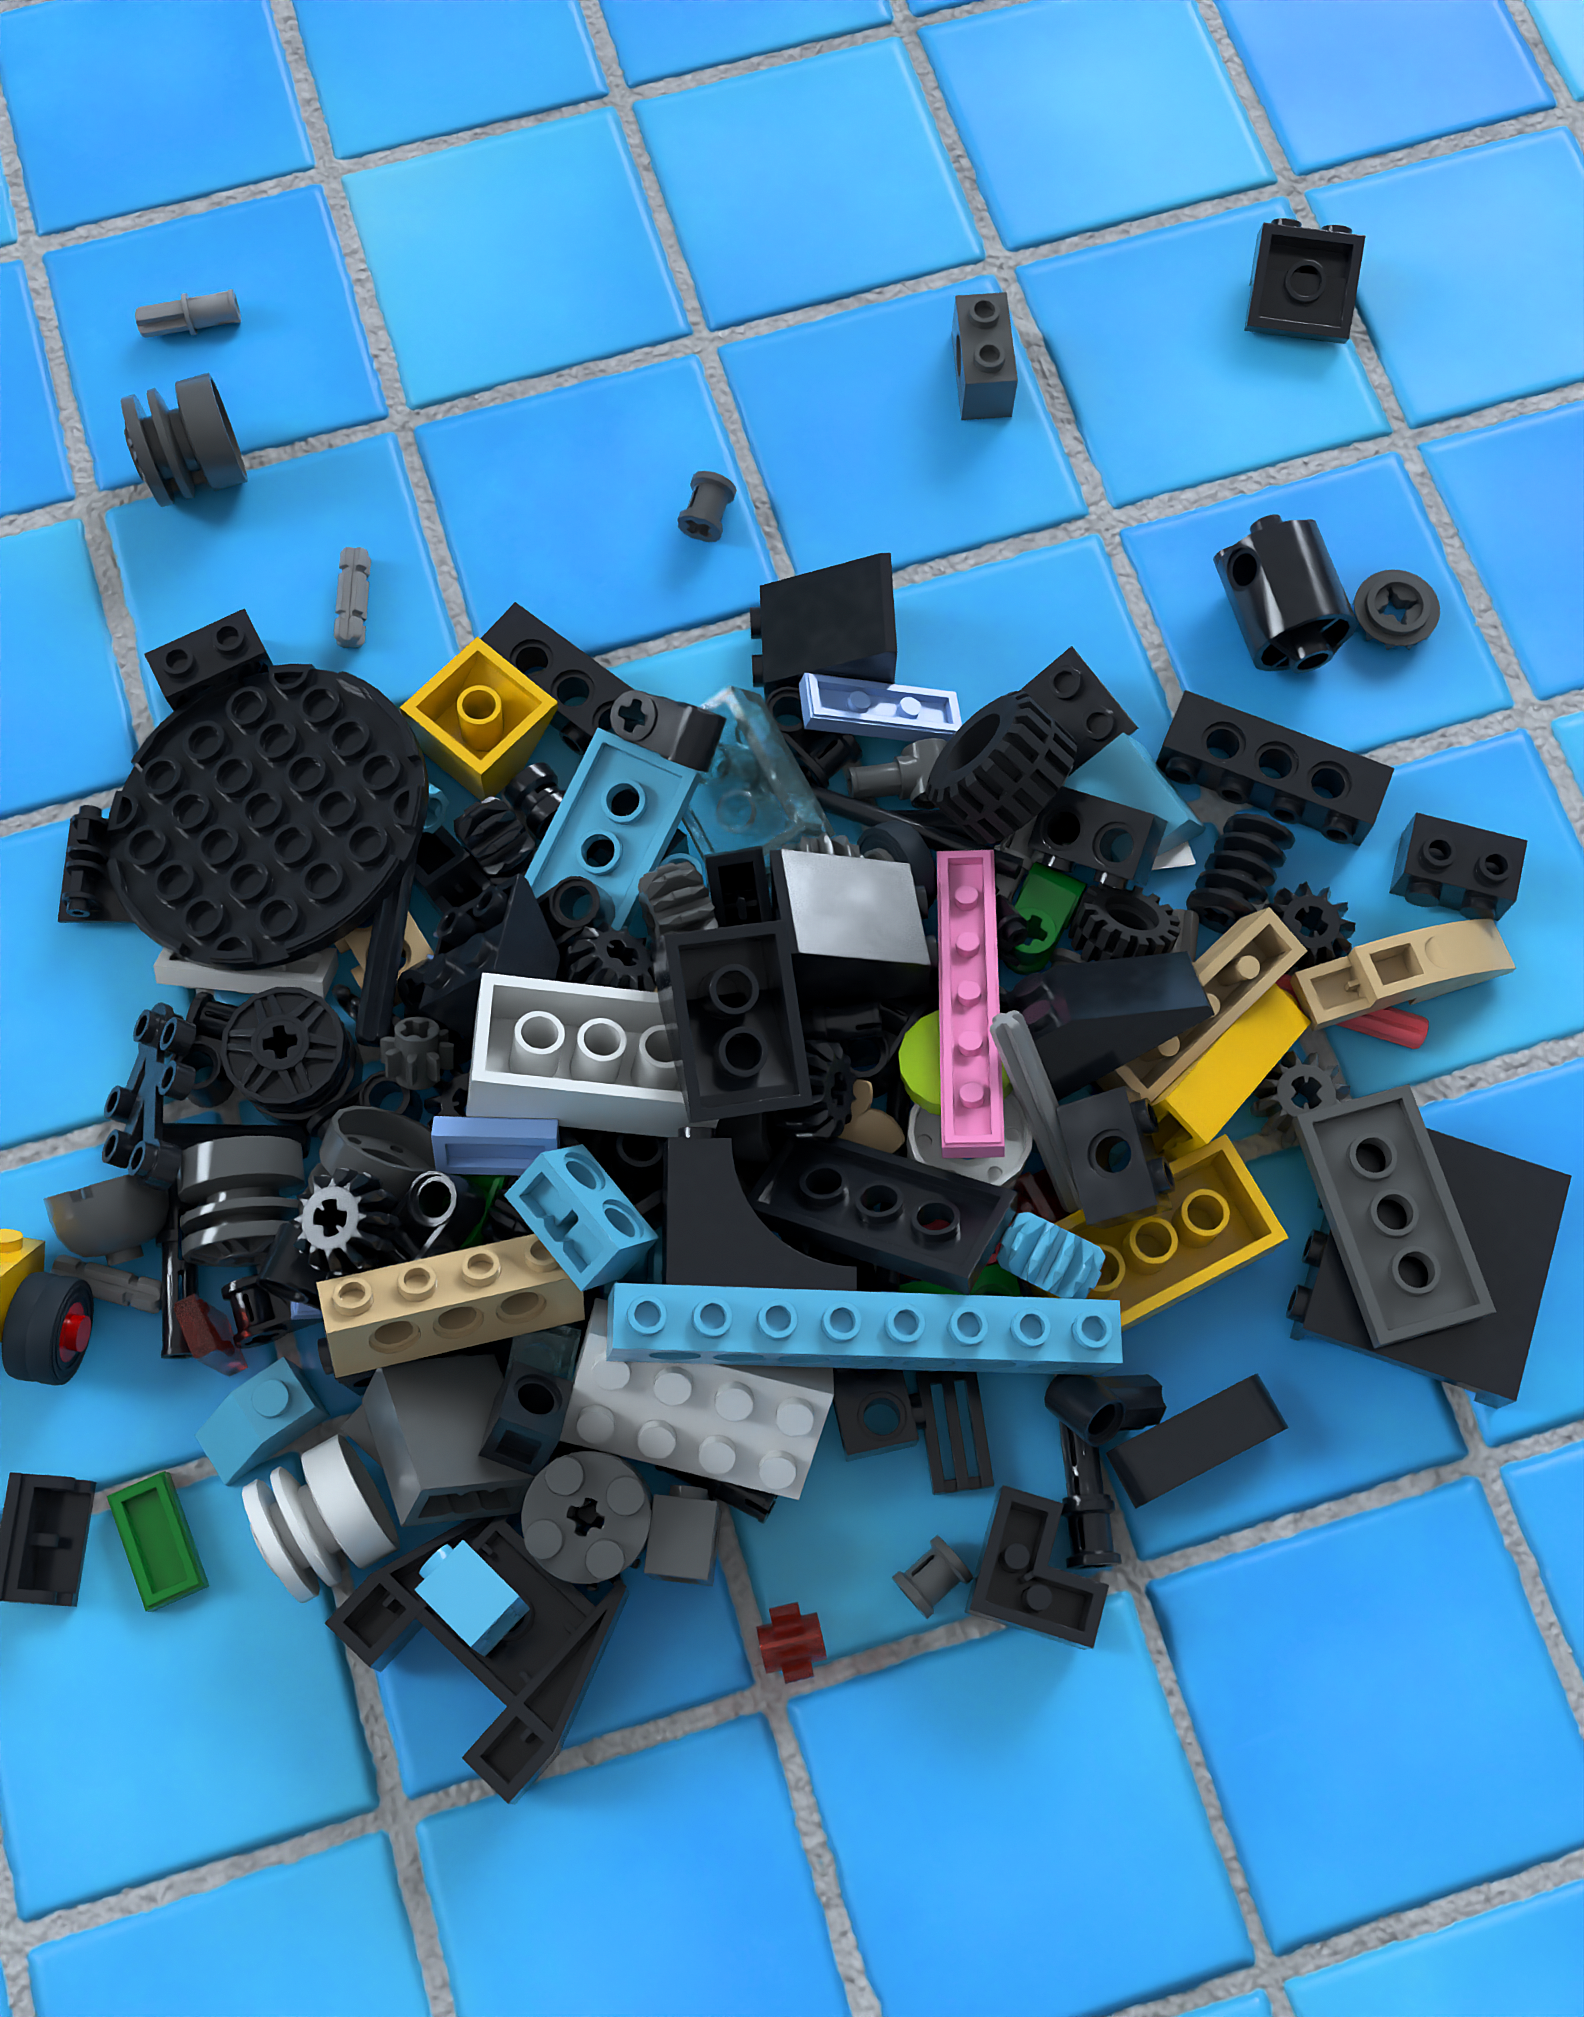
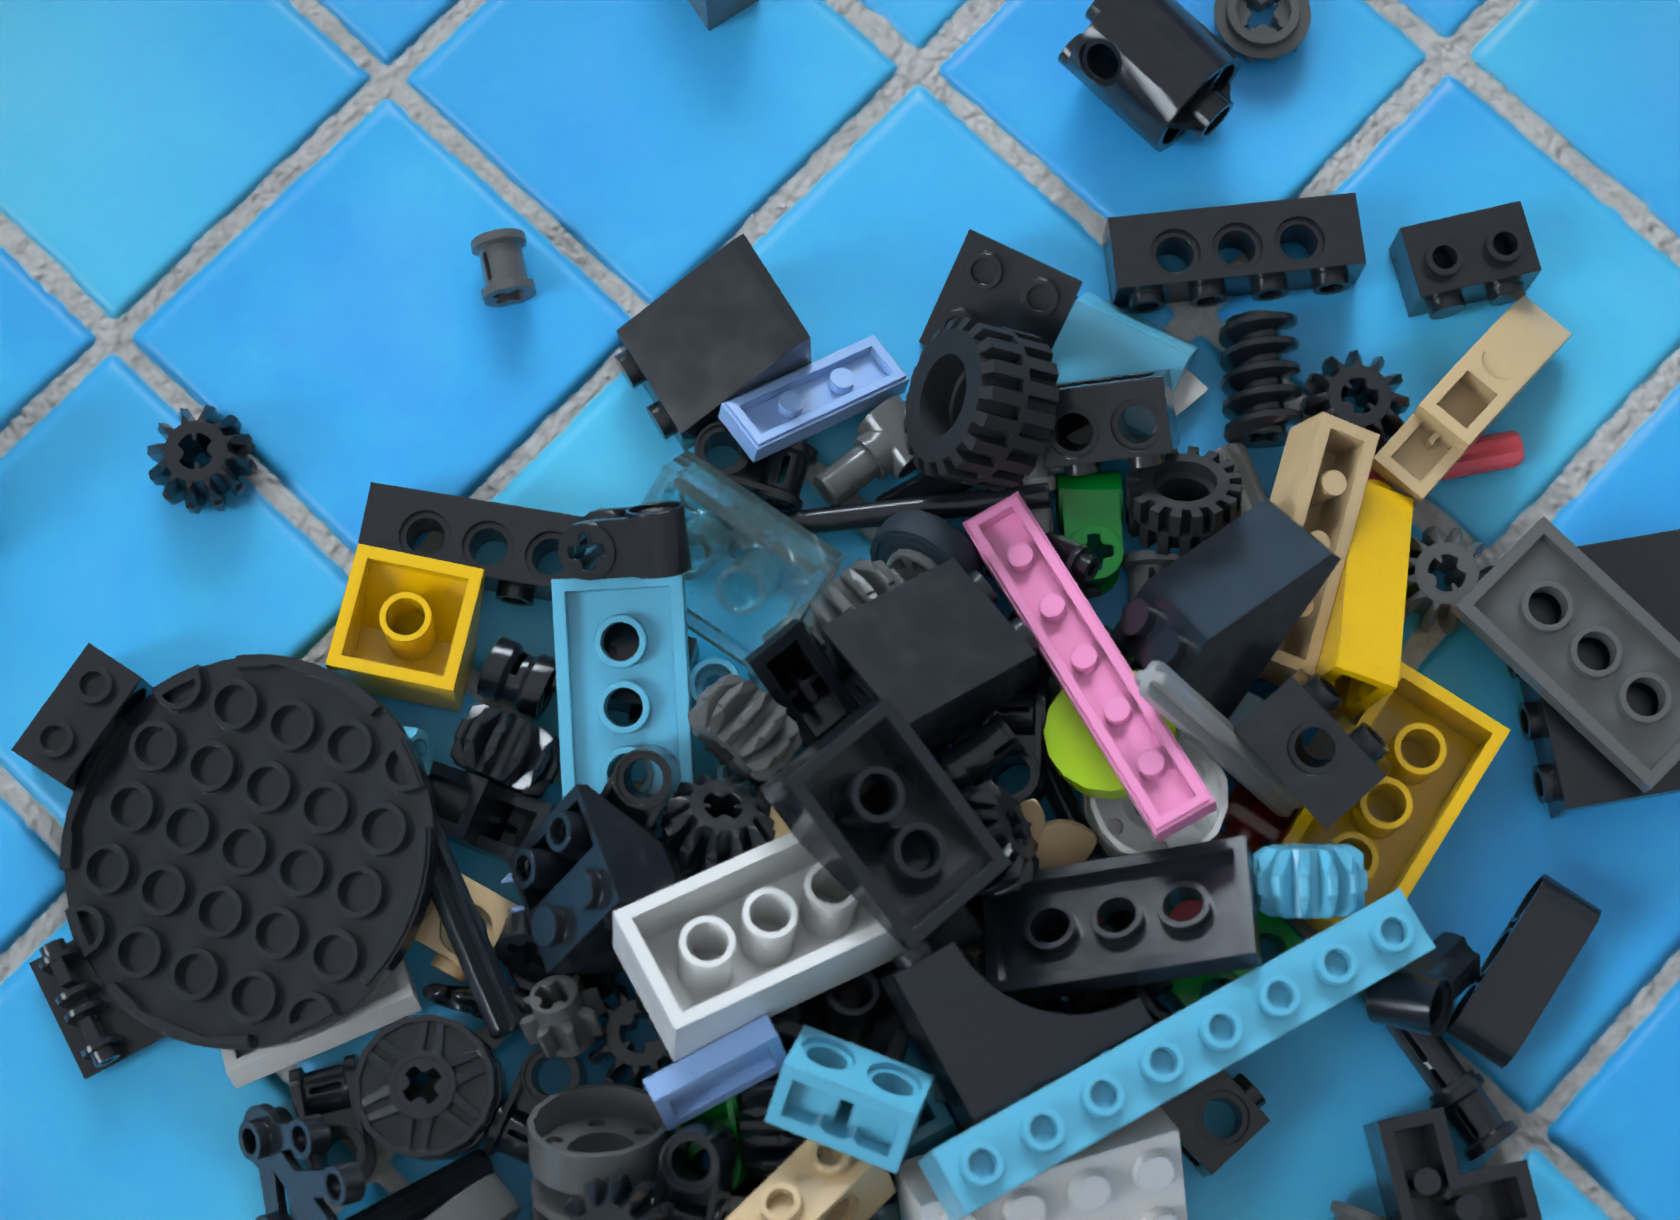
camera: 30 degrees left, 5 degrees up
(352, 597) = (183, 562): light grey axle -> none
(408, 530) = (195, 483): none -> black gear
(961, 1481) = (1325, 1133): black tile -> none

